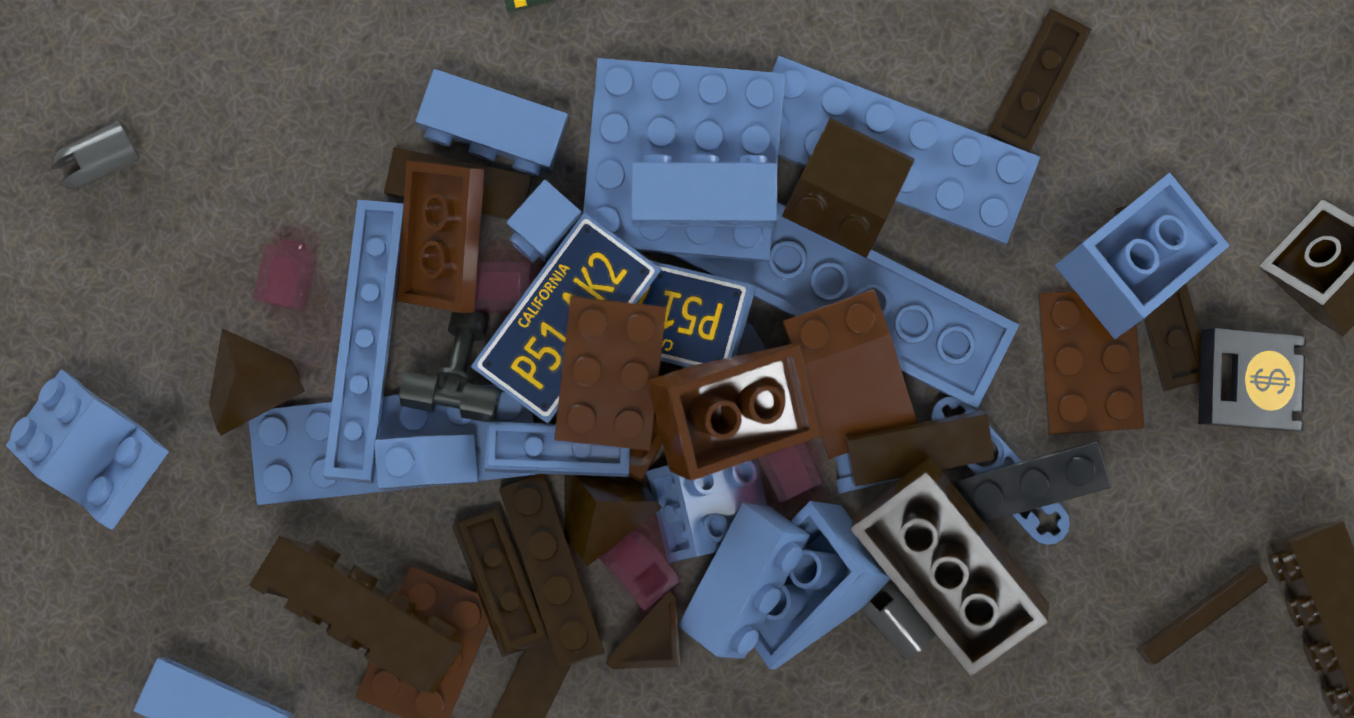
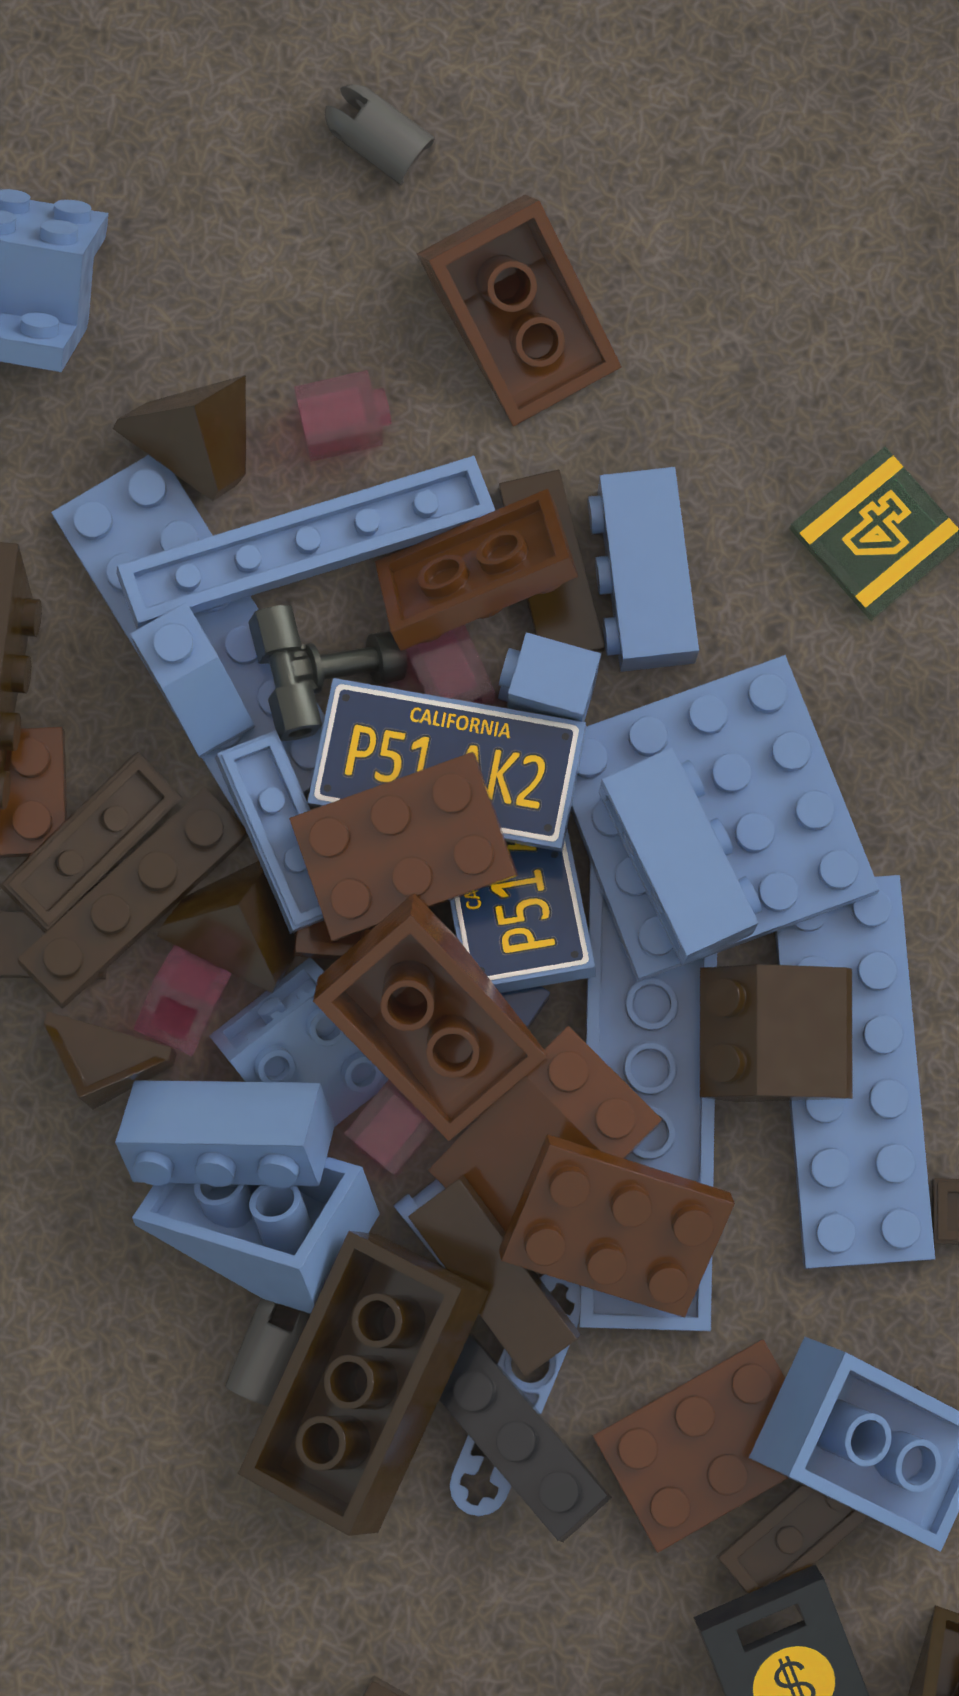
camera: 60 degrees right, 5 degrees down
(267, 119) = (520, 308): none -> reddish brown slope
(928, 353) = (616, 1226): none -> reddish brown plate

